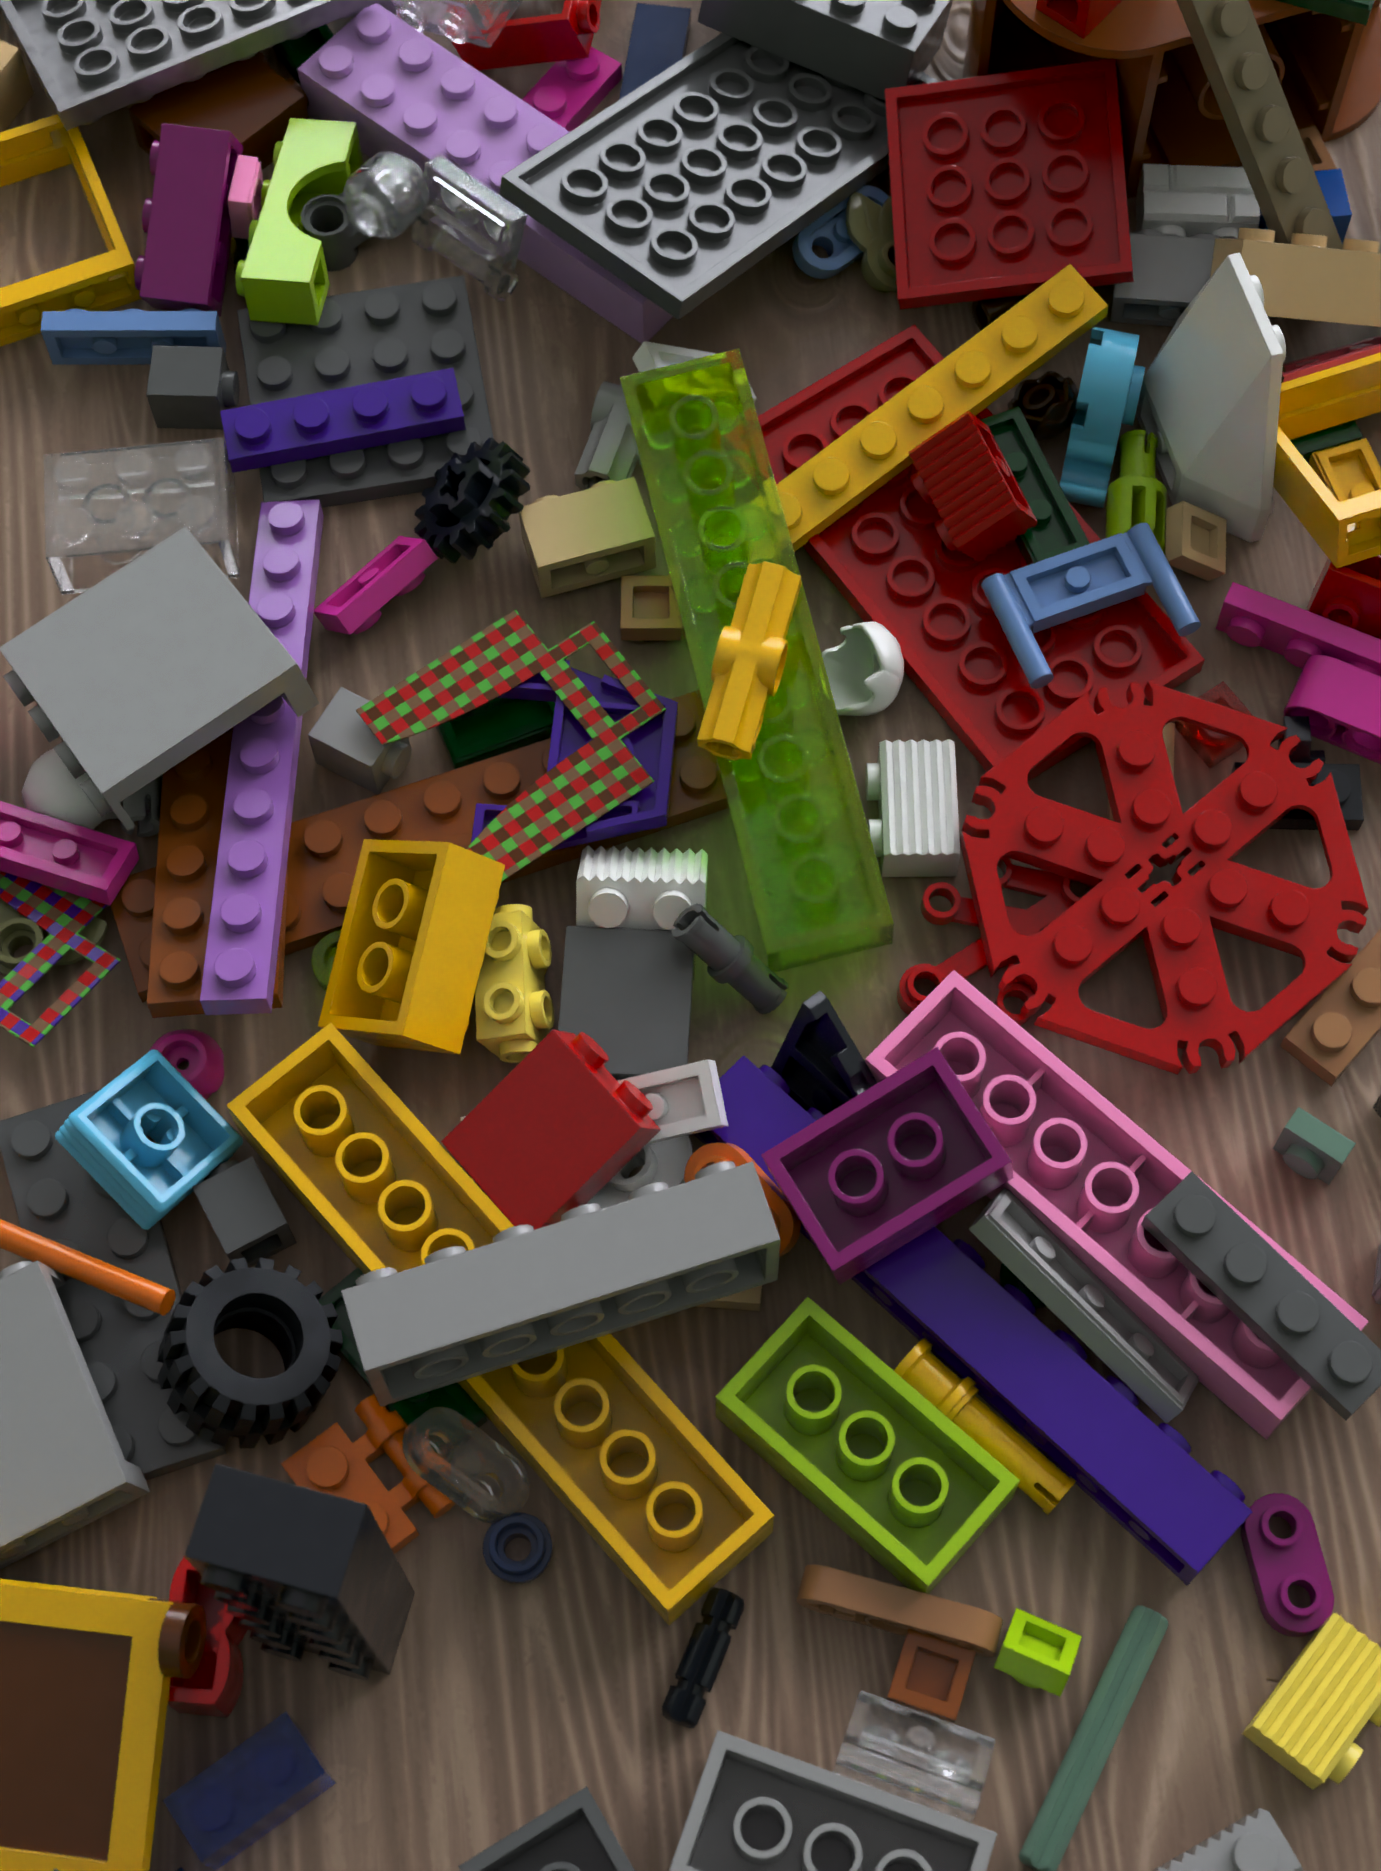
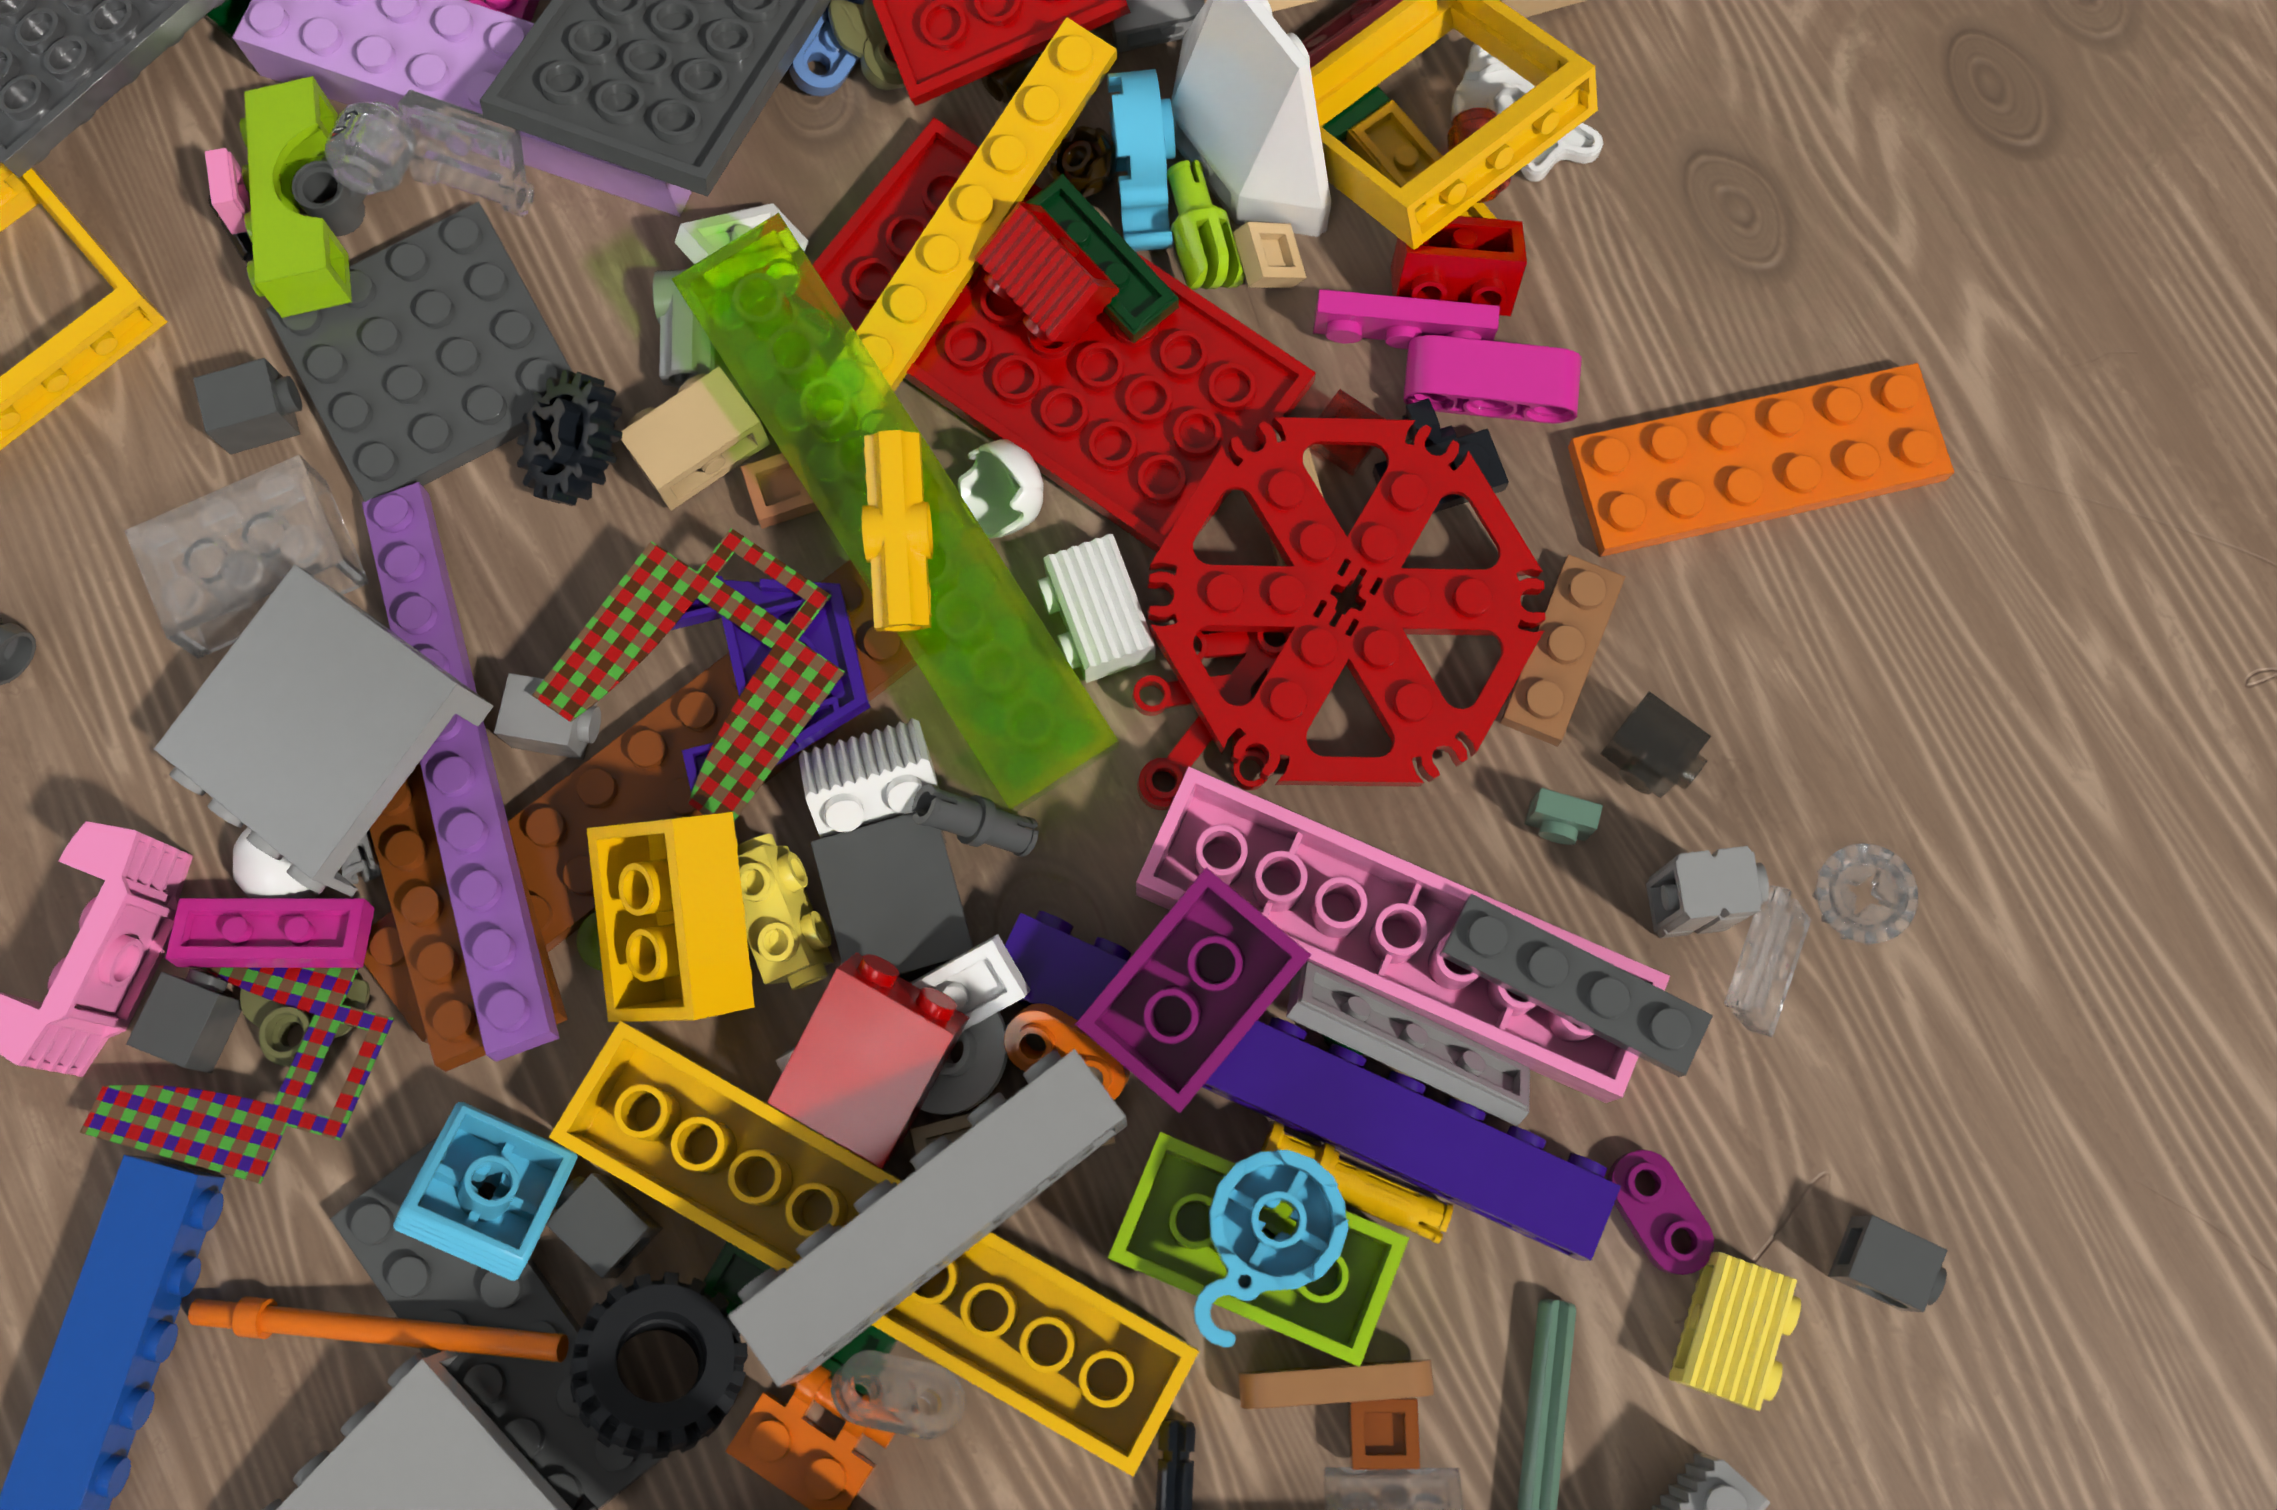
camera: 20 degrees left, 10 degrees up
(125, 335) = (164, 371): medium blue plate -> none
(188, 219) = (179, 233): magenta brick -> none
(202, 1053) = (508, 1079): dark pink plate -> none
(234, 98) = (174, 114): reddish brown brick -> none
(342, 420) = (411, 395): dark purple plate -> none
(390, 573) = (496, 569): dark pink plate -> none
(496, 729) = (676, 662): dark green tile -> none
(517, 1526) = (972, 1471): dark blue plate -> none
(821, 1059) = (1102, 898): black wing -> none
(864, 1442) = (1252, 1258): none -> medium azure piece
(1038, 1652) = (1471, 1377): lime plate -> none
(1079, 585) = (1180, 337): medium blue plate -> none

